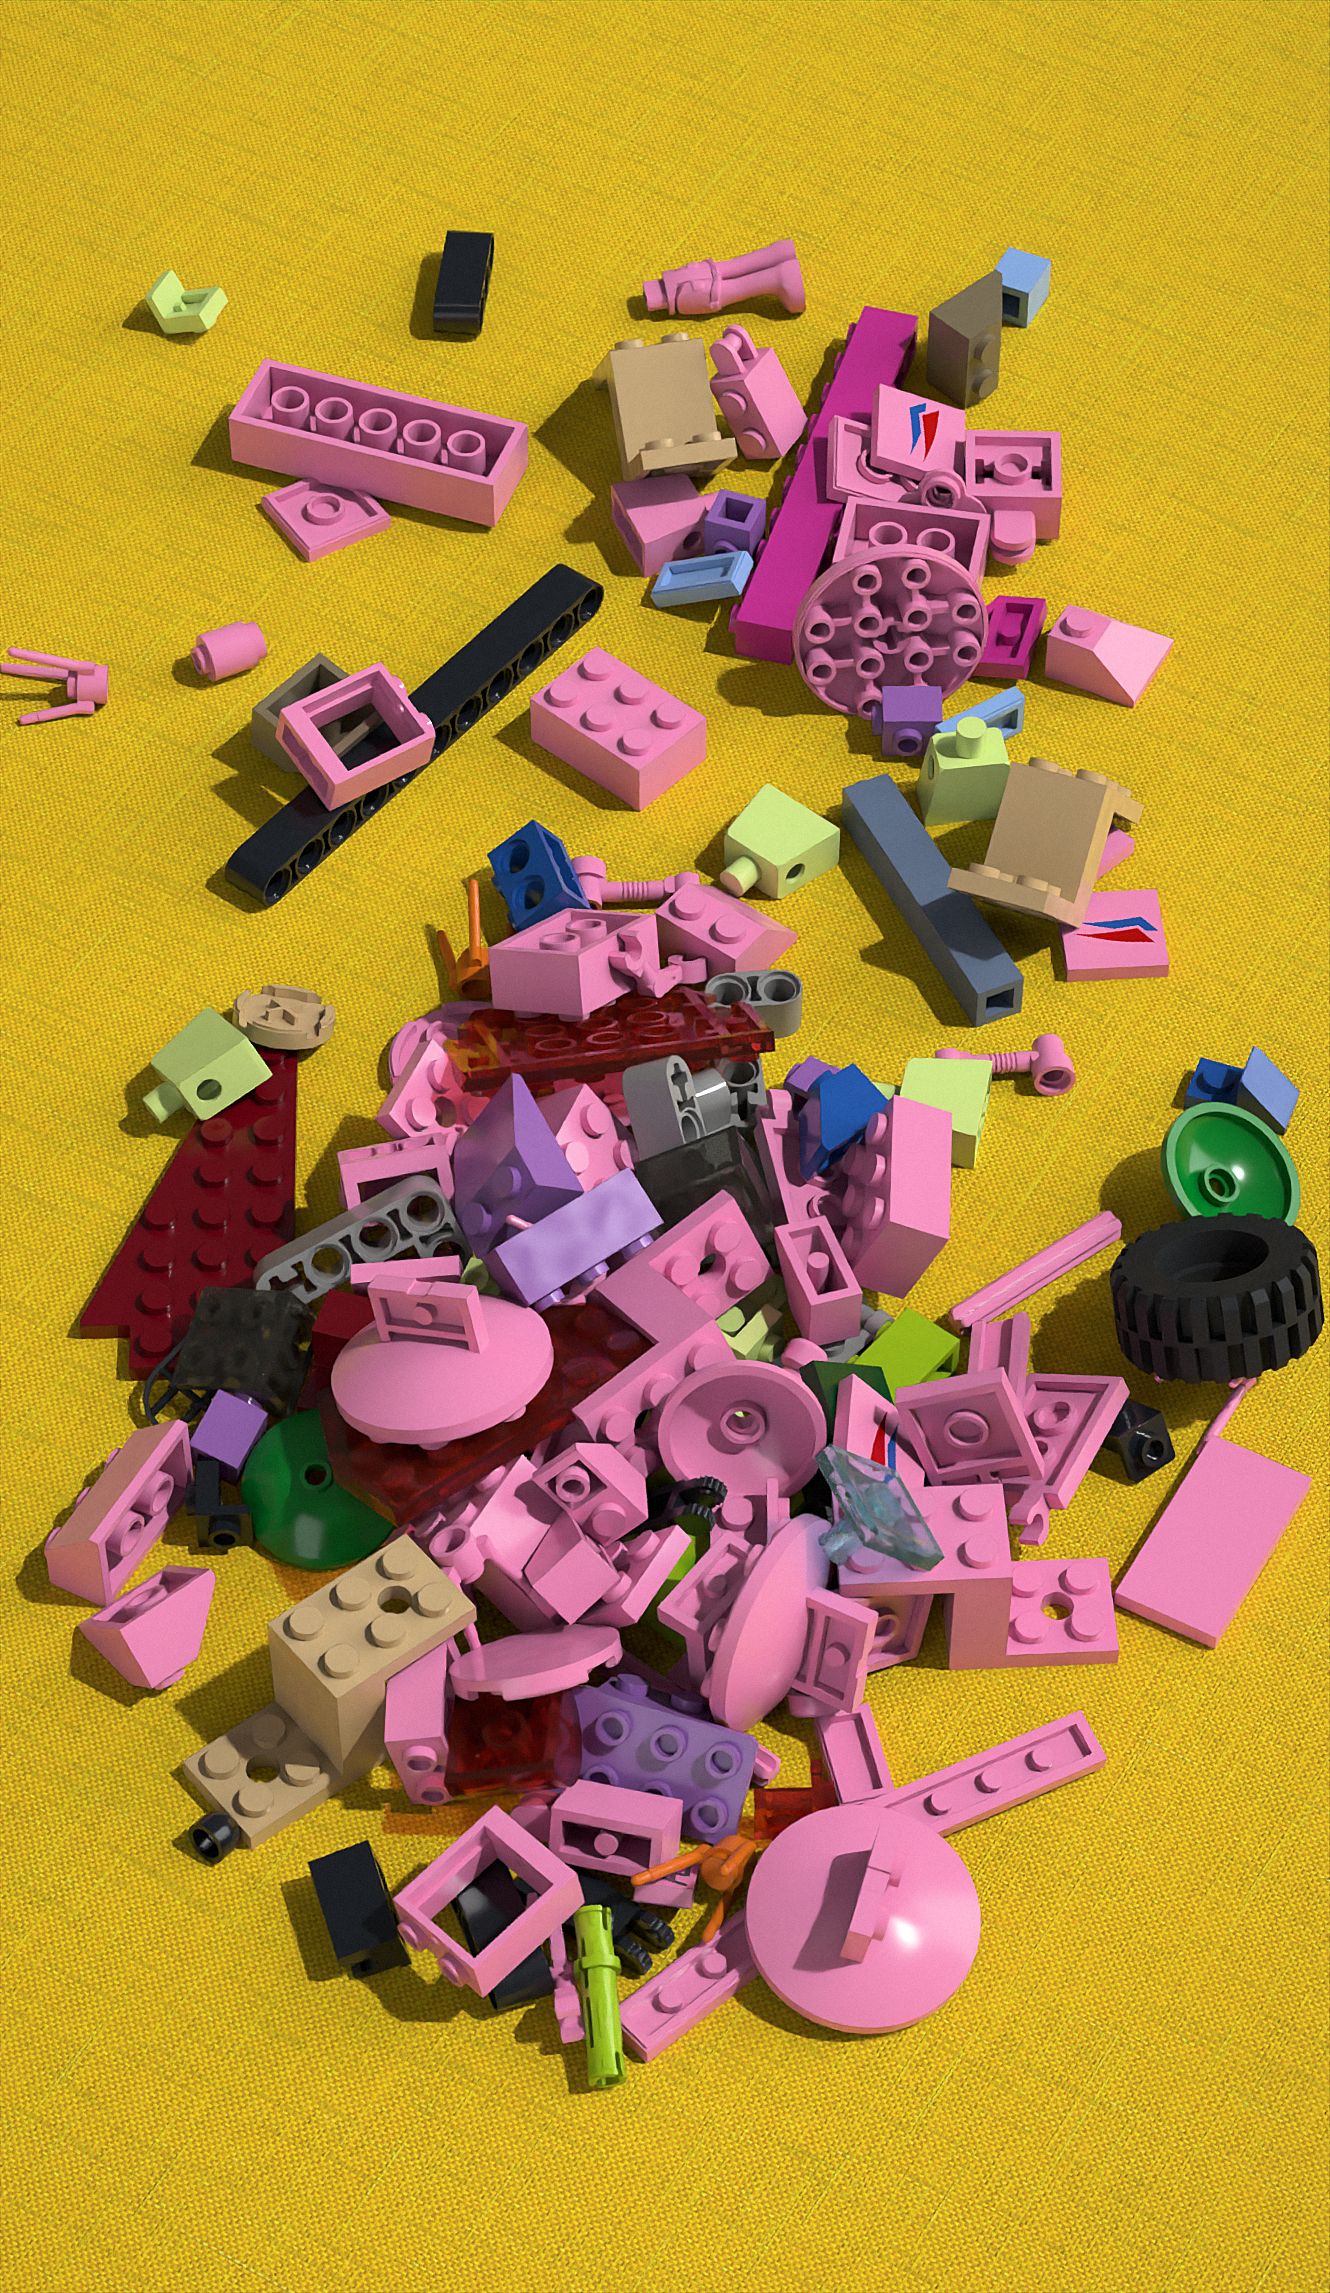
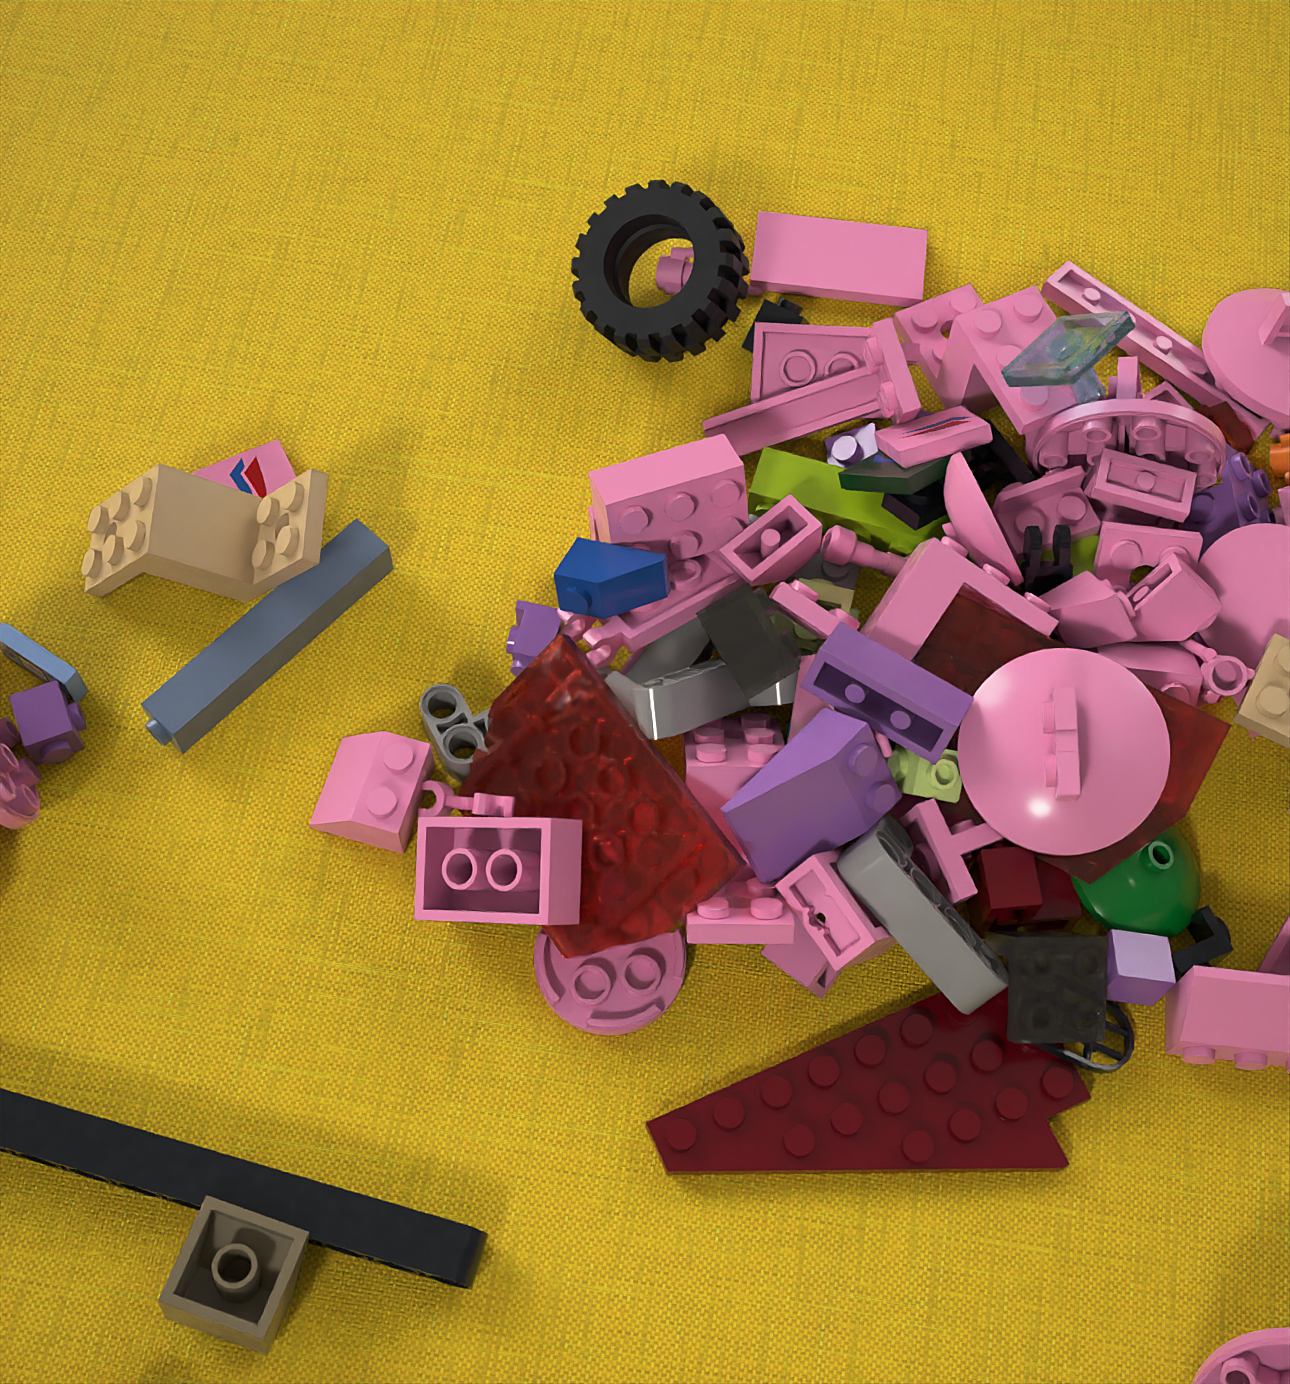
camera: 115 degrees left, 15 degrees up
(204, 1069) = (744, 1176): yellowish green torso -> none
(283, 1017) = (637, 1140): tan tile -> none
(319, 764) = (241, 1149): window -> none
(472, 970) = (498, 985): orange plant -> none
(535, 876) = (375, 955): blue brick -> none
(592, 876) = (357, 927): bright pink brick -> none
(618, 728) = (140, 978): bright pink brick -> none
(777, 846) = (249, 783): yellowish green torso -> none
(953, 1086) = (510, 549): yellowish green torso -> none
(963, 774) = (113, 637): yellowish green torso -> none
(1035, 1272) = (618, 425): bright pink axle -> none
(1047, 1064) = (424, 495): bright pink brick -> none
(1228, 1162) = (511, 320): green dish -> none
(1256, 1088) = (398, 357): blue slope -> none

